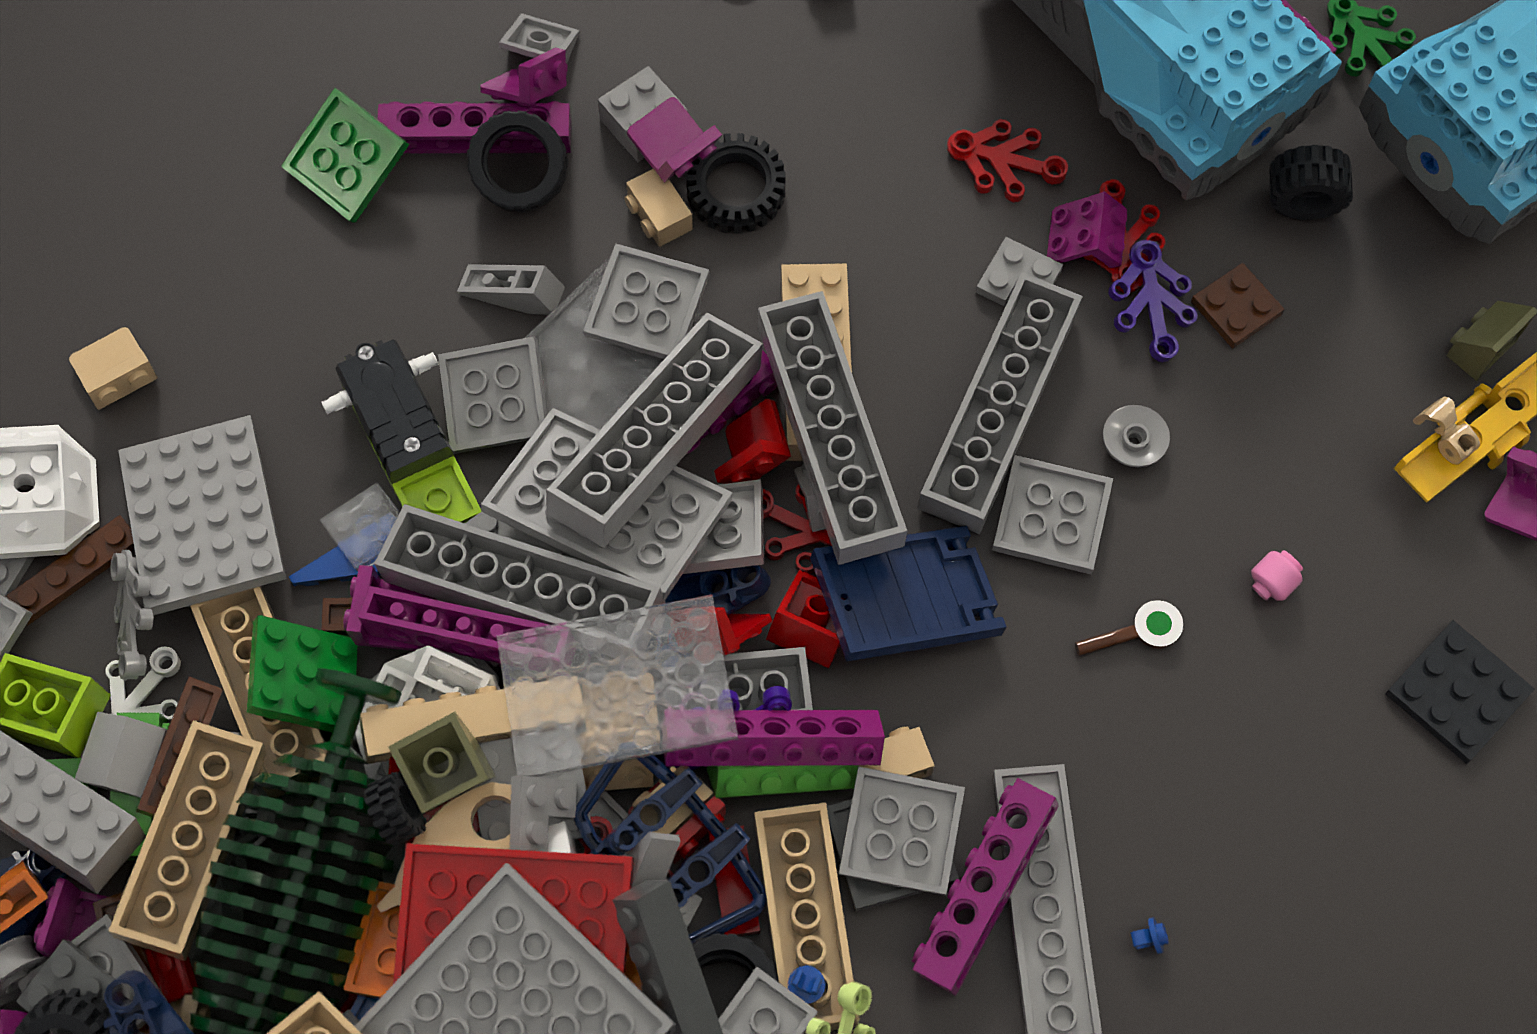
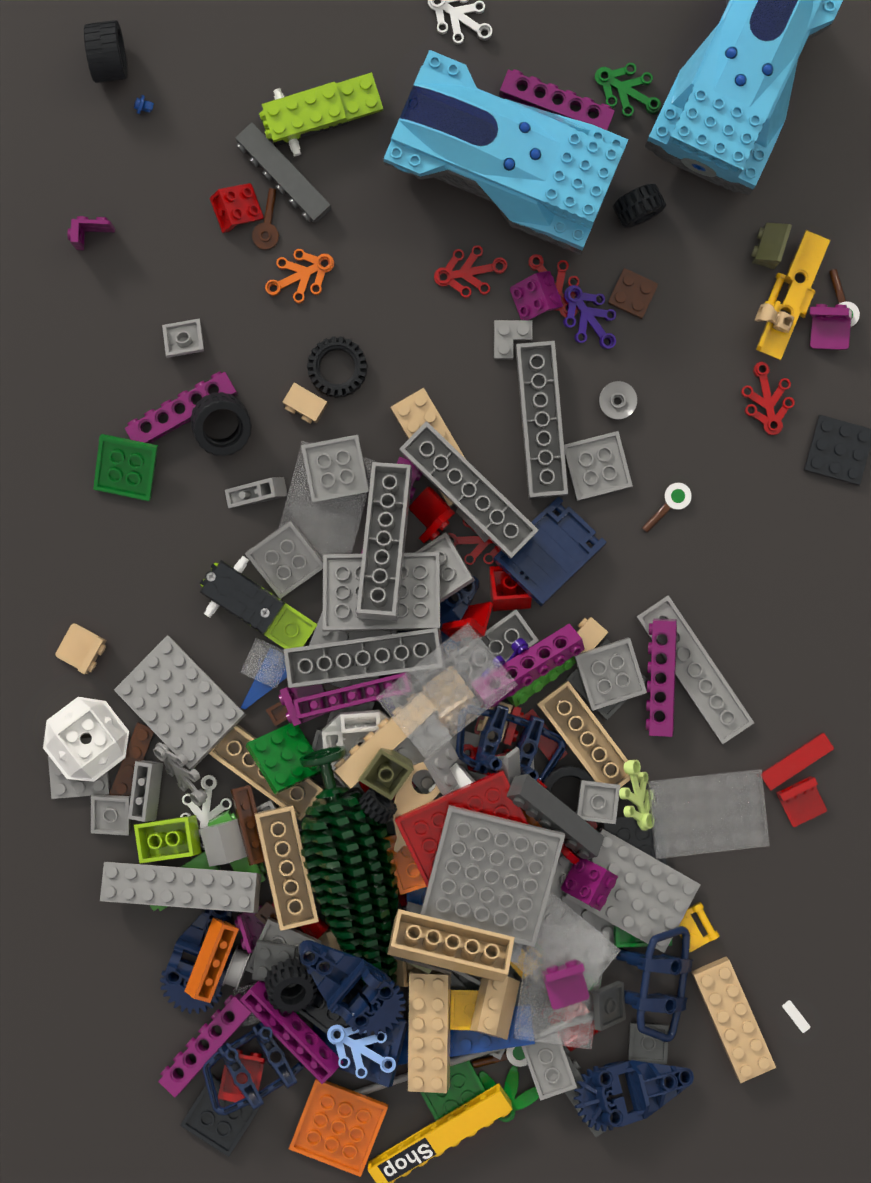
camera: 30 degrees left, 20 degrees up
(60, 615) = (145, 790): none -> light grey brick
(531, 80) = (195, 372): magenta bracket -> none
(630, 103) = (265, 353): light grey brick -> none
(672, 139) = (295, 367): magenta bracket -> none
(759, 44) = (303, 274): none -> orange plant
(807, 984) = (606, 773): blue plate -> none
(1154, 935) = (752, 655): blue plate -> none
(1276, 575) = (723, 439): bright pink head -> none
(1375, 558) = (767, 401): none -> red plant

